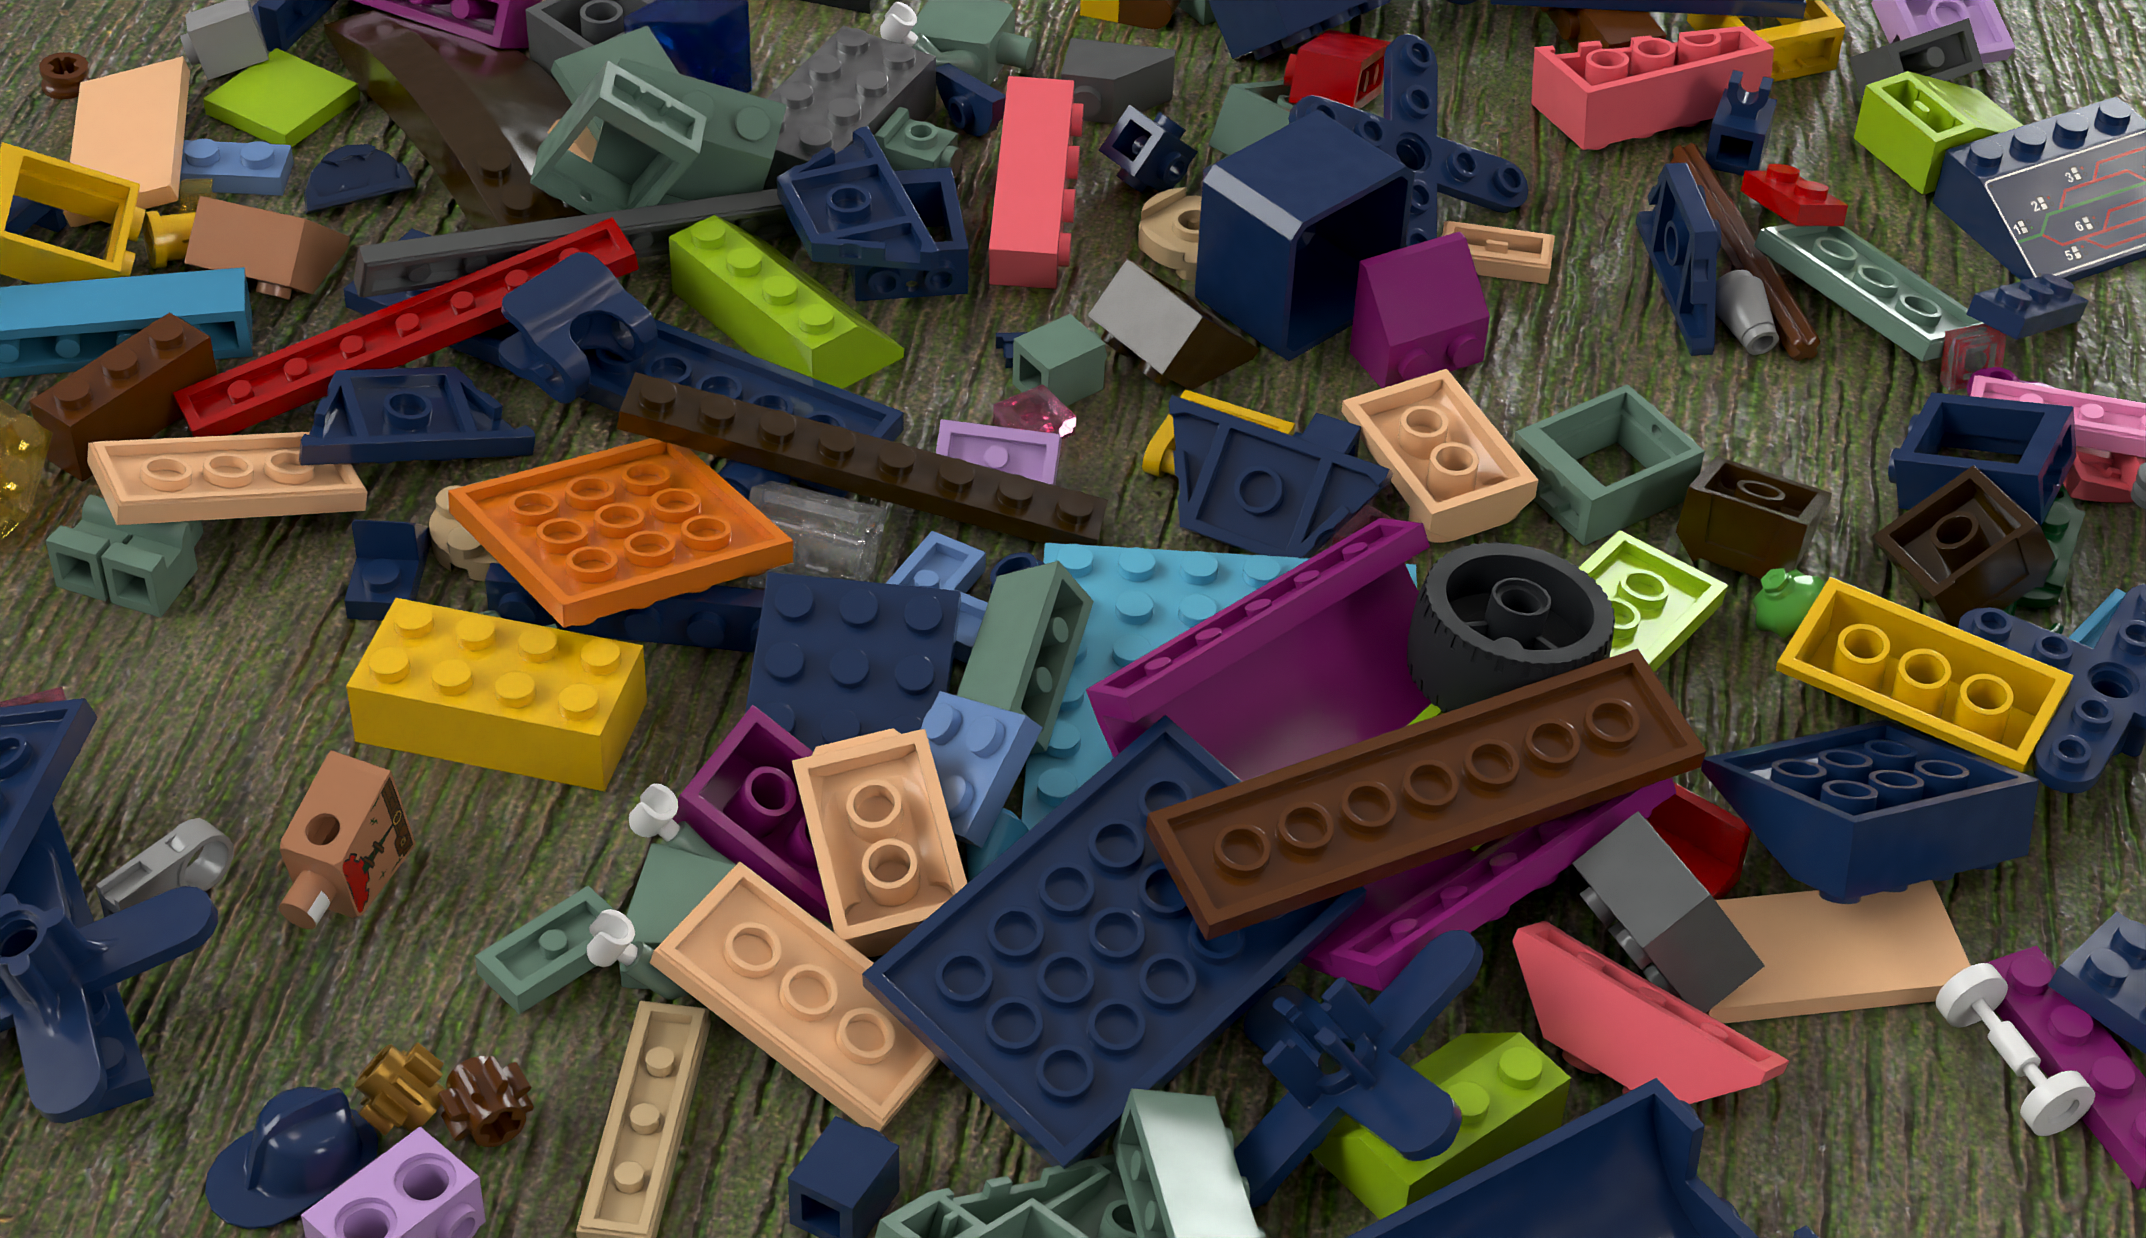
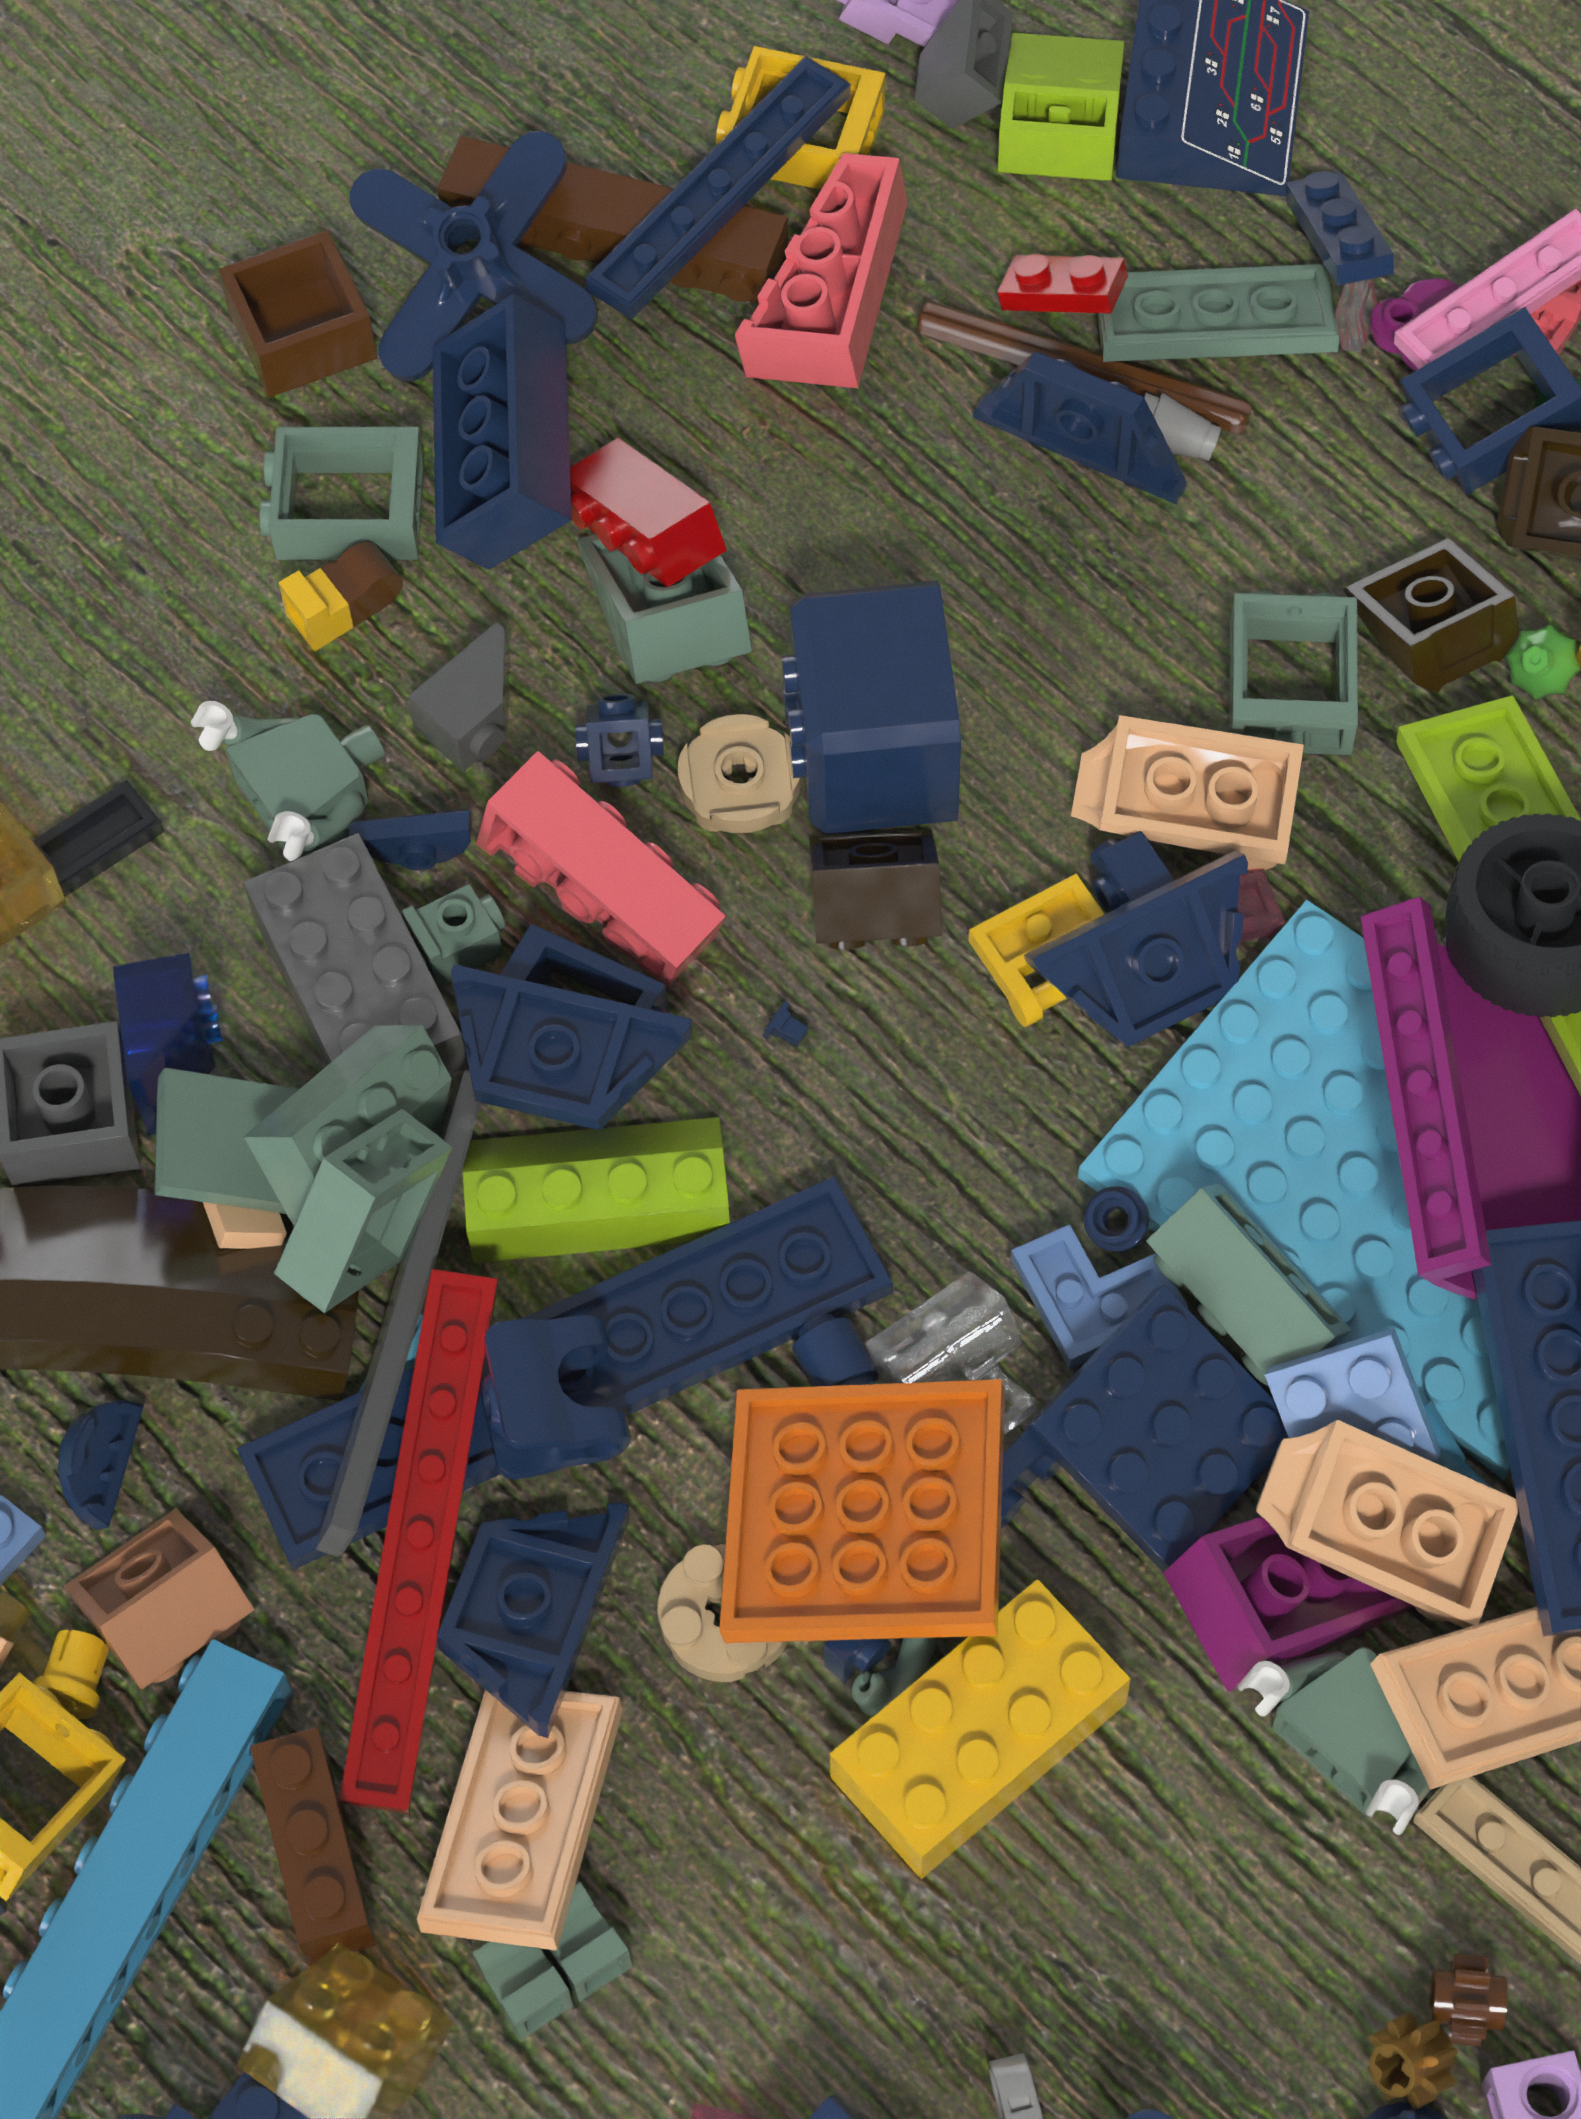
camera: 50 degrees left, 20 degrees up
(343, 841) = (1097, 1934): nougat torso -> none
(386, 566) = (716, 1731): dark blue slope -> none
(543, 952) = (1315, 1851): sand green plate -> none
(860, 463) = (895, 1260): dark brown plate -> none
(1002, 448) = (946, 1137): lavender plate -> none
(1035, 411) = (909, 1073): clear pink plate -> none
(1062, 358) = (854, 1006): sand green brick -> none
(1411, 138) = (802, 542): dark blue piece -> none
(1419, 311) = (1025, 686): magenta slope -> none
(1507, 251) = (992, 539): light nougat tile -> none
(1741, 127) = (942, 252): dark blue brick -> none

